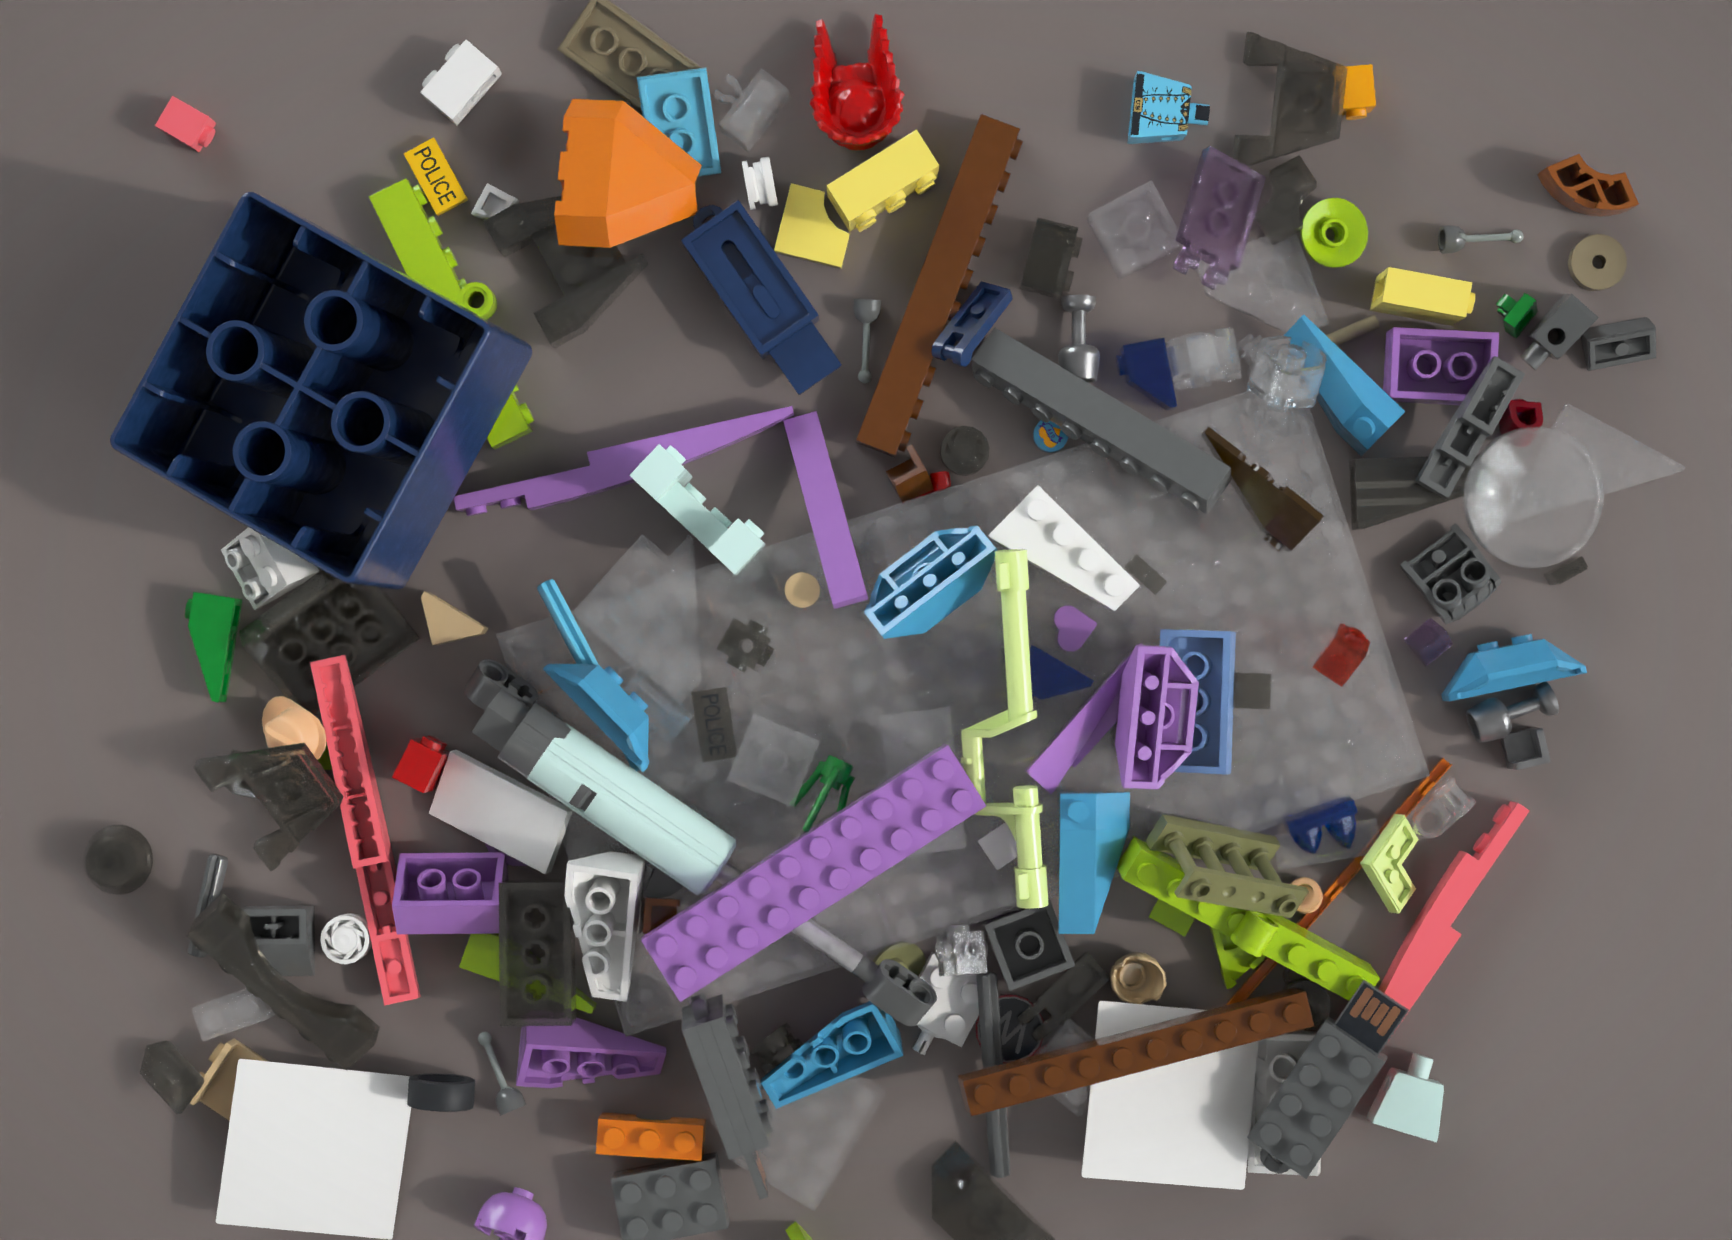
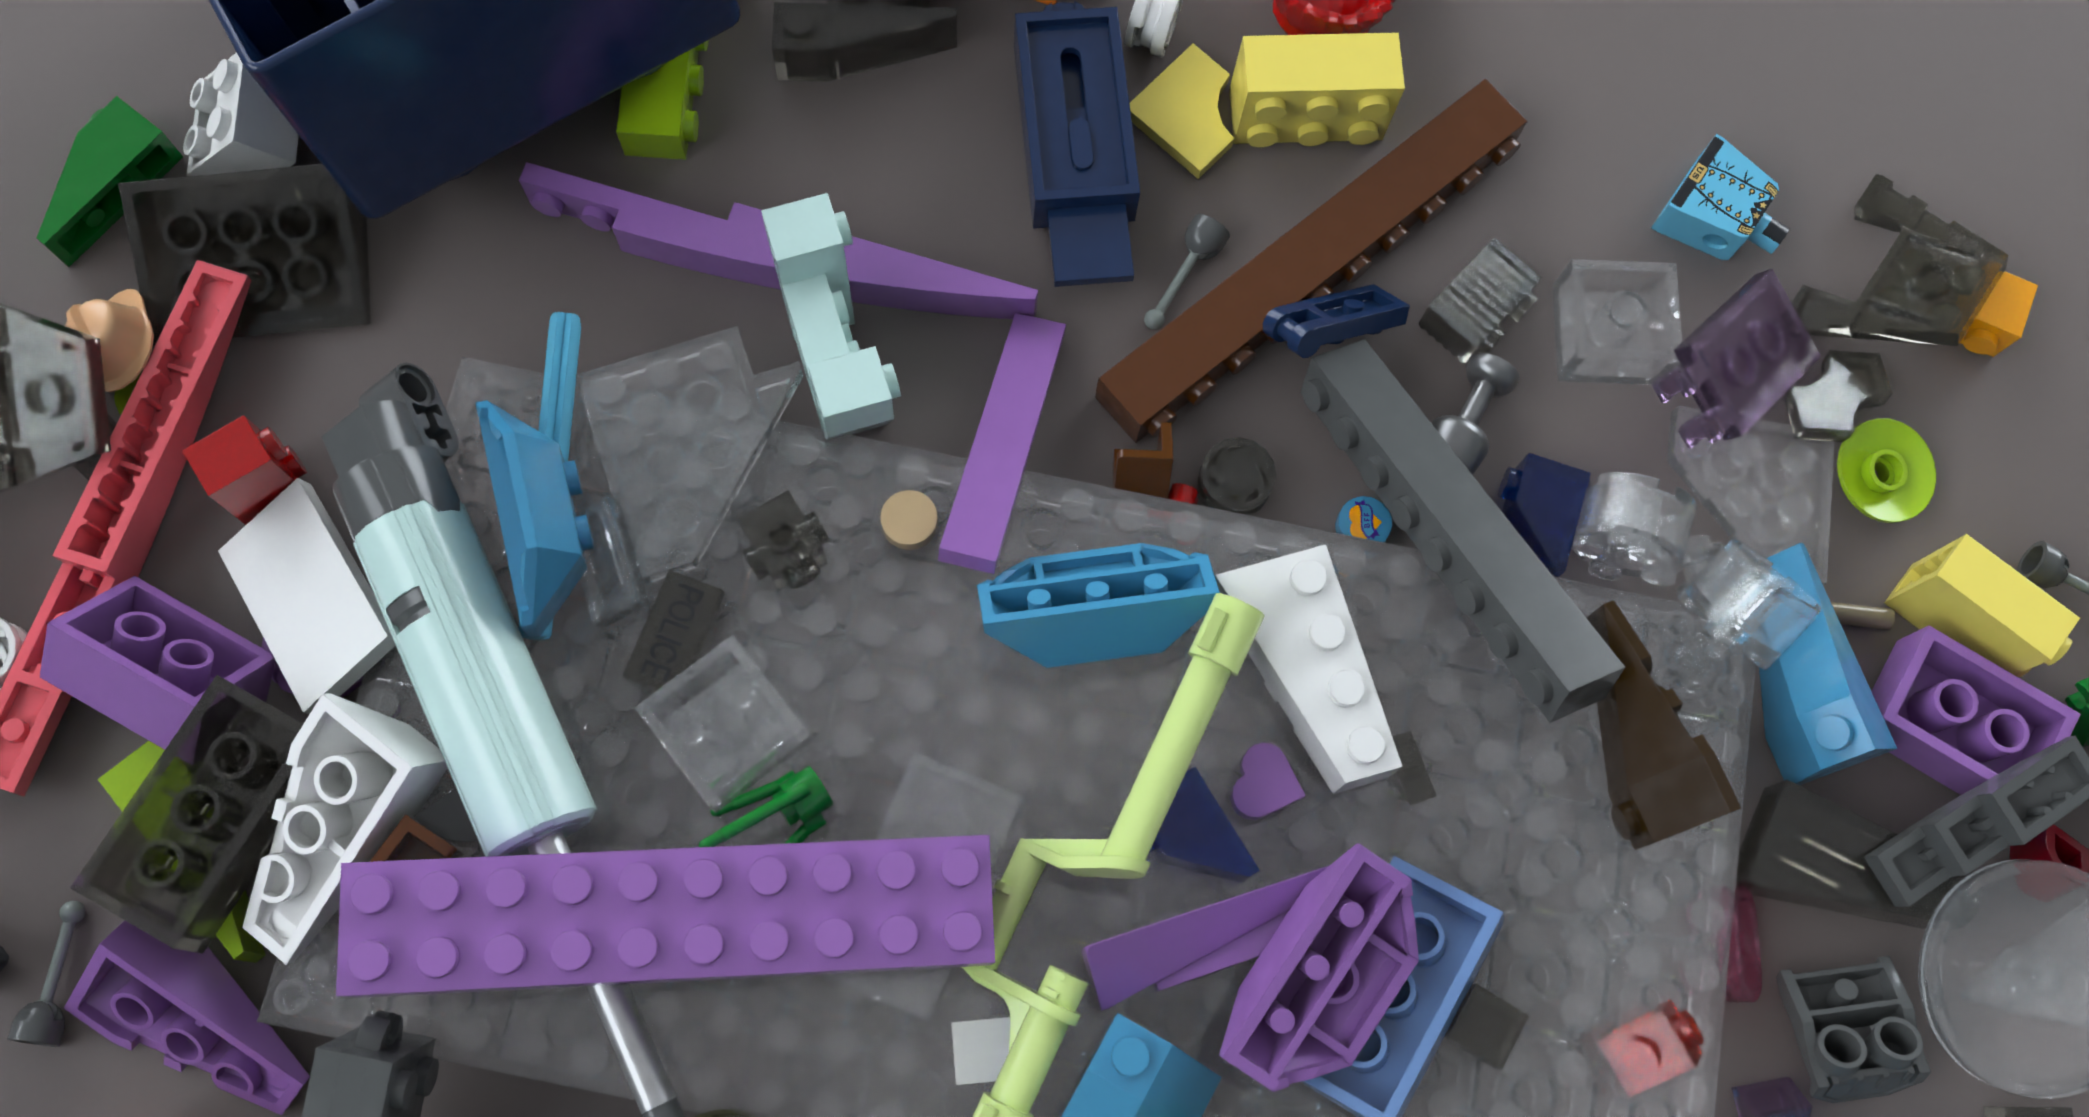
camera: 20 degrees right, 15 degrees down
(447, 622) = (412, 319): tan slope -> none
(1374, 564) = (1744, 964): none -> clear pink plate

